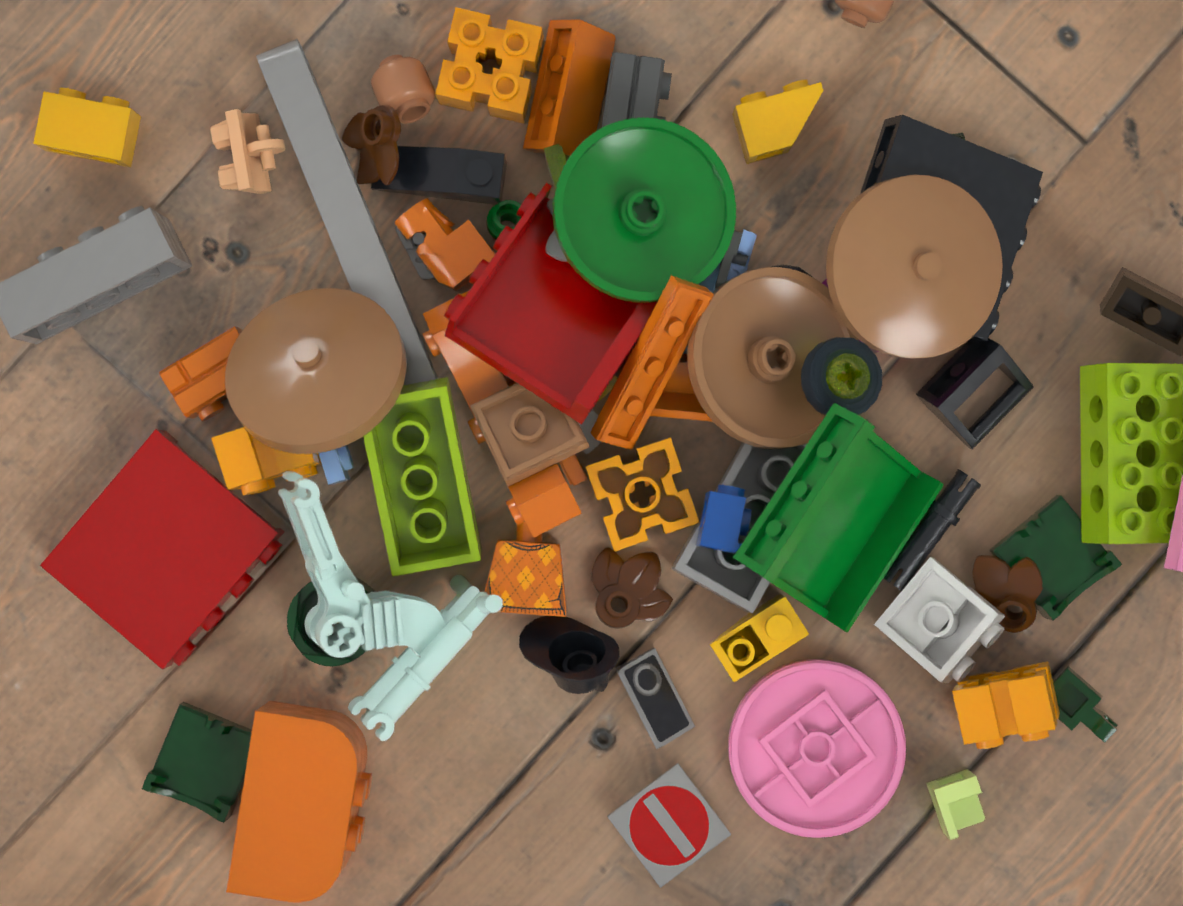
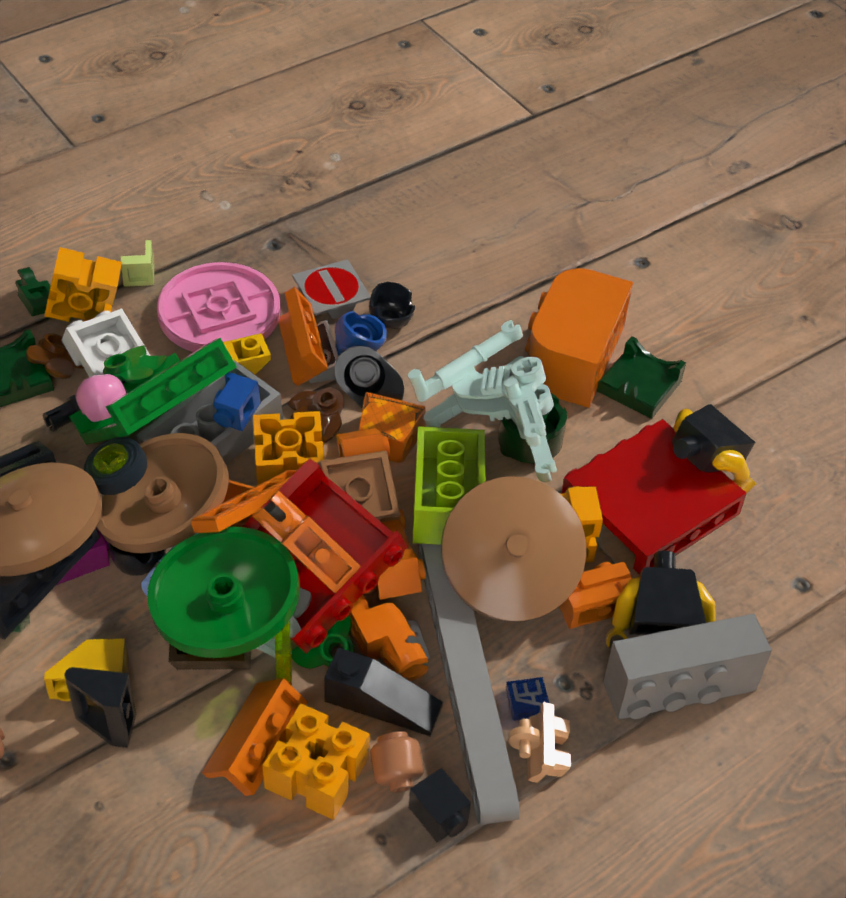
camera: 170 degrees left, 40 degrees down
(87, 128) = (678, 790): yellow brick -> none
(94, 630) = (713, 444): none -> black torso
(125, 350) = (661, 600): none -> black torso
(274, 215) = (526, 697): none -> clear blue tile
(344, 46) = (439, 805): none -> black brick
(376, 138) = (429, 720): reddish brown plate -> none
(565, 295) = (307, 541): none -> orange plate
(573, 805) = (392, 304): none -> black hair
(599, 741) = (359, 330): none -> blue hair
(635, 88) = (204, 709): dark grey brick -> none
(682, 710) = (301, 338): none -> orange panel
(743, 64) = (112, 693): none -> black tile
(880, 584) = (134, 365): none -> green plate
(907, 508) = (97, 393): none -> bright pink hair

